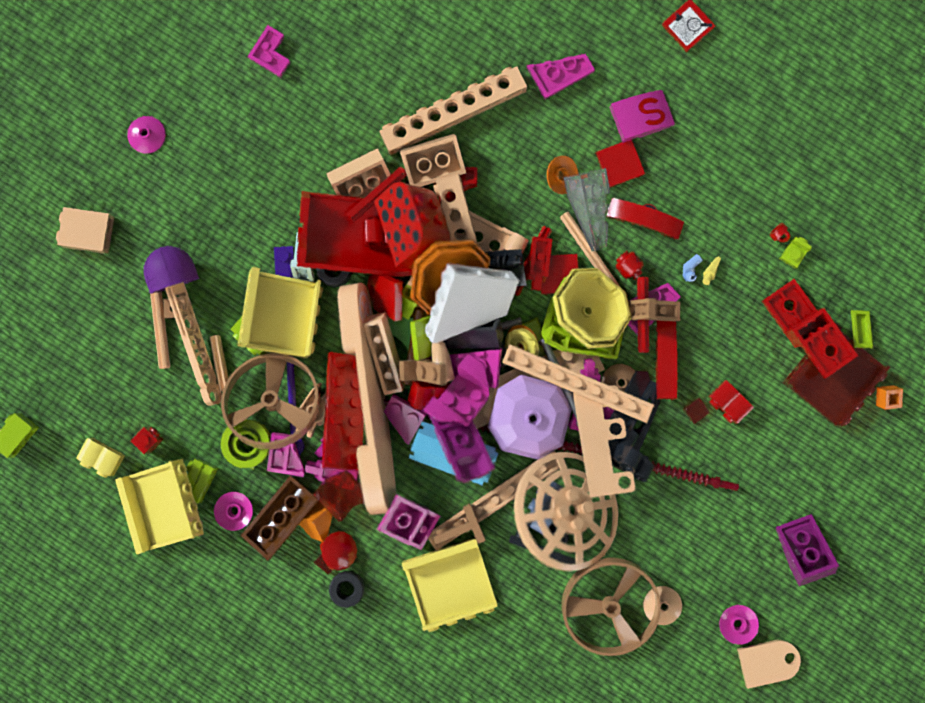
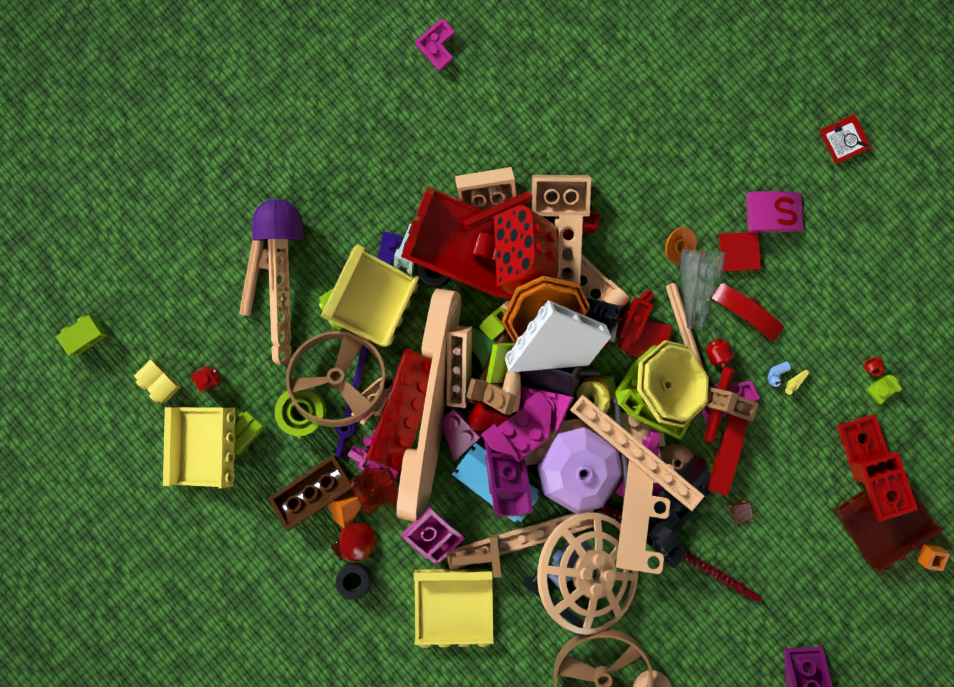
camera: 15 degrees right, 0 degrees up
(85, 230) = (209, 160): light nougat brick -> none
(152, 141) = (299, 95): dark pink dish -> none
(219, 361) = (298, 324): light nougat axle -> none
(224, 515) = (259, 476): dark pink dish -> none
(285, 459) = (332, 438): dark pink wing -> none
(386, 295) = (477, 311): red tile -> none
(509, 75) = (660, 137): light nougat brick -> none
(559, 74) = (705, 149): dark pink wing -> none
(730, 402) = (777, 514): red brick -> none
(861, 329) = (925, 483): lime tile -> none

